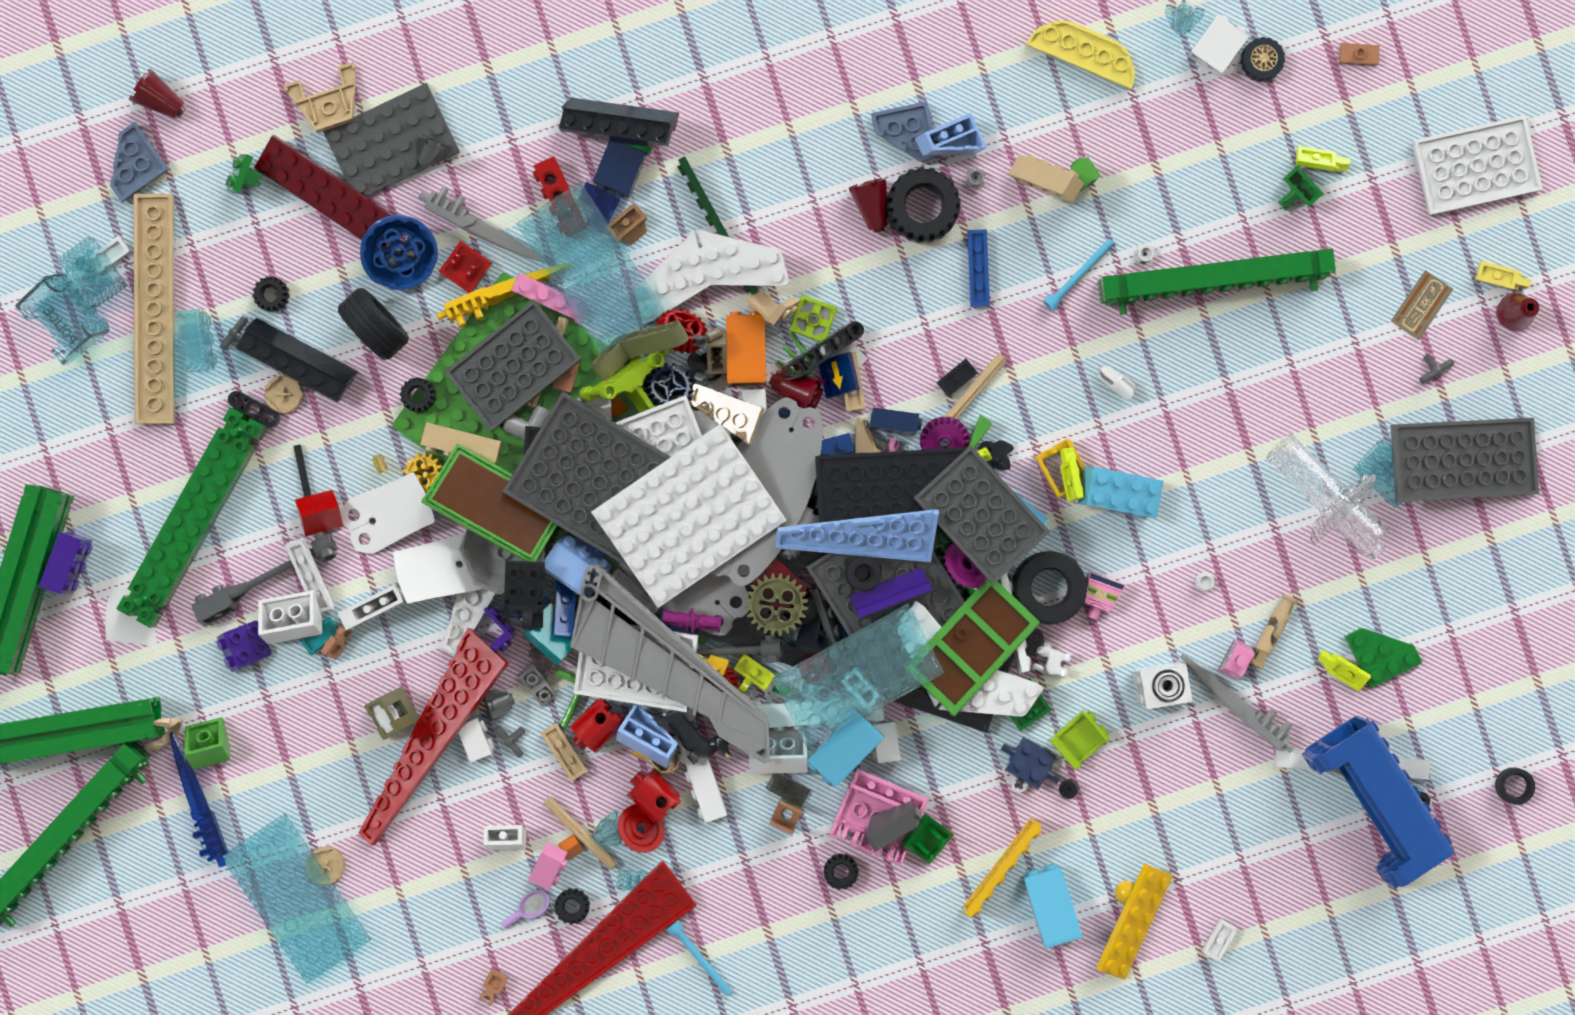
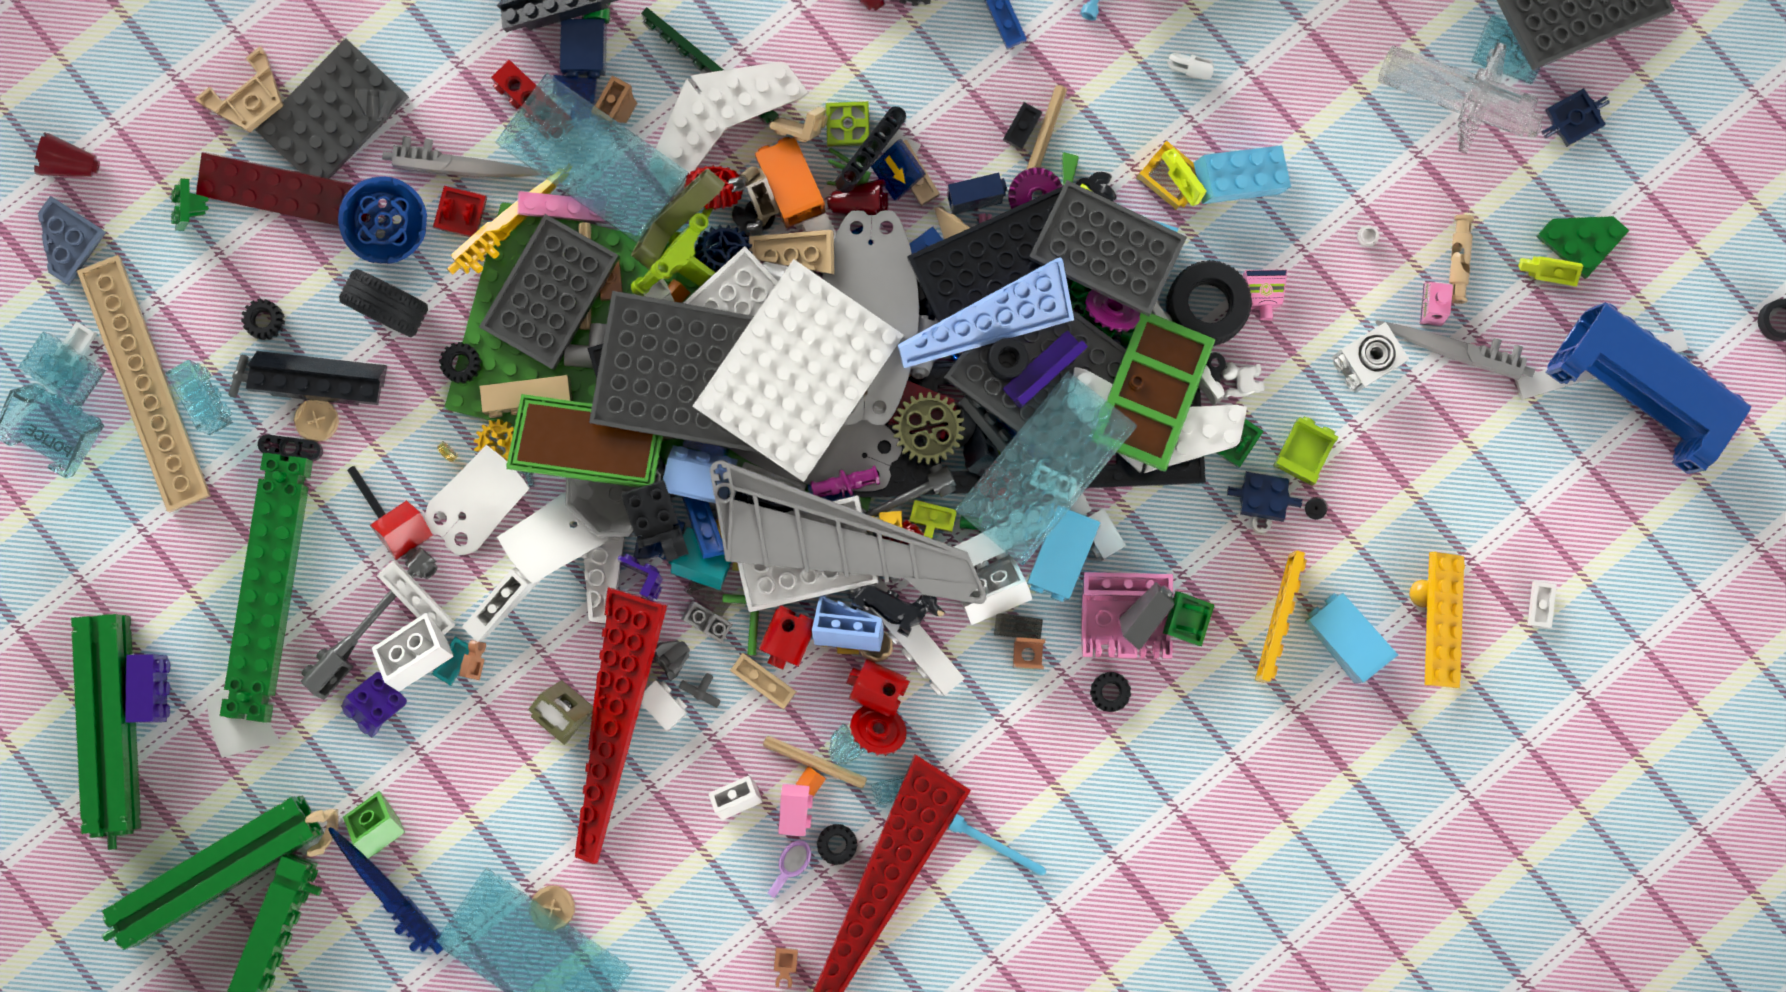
camera: 20 degrees left, 5 degrees down
(1418, 551) = (1575, 117): none -> dark blue plate

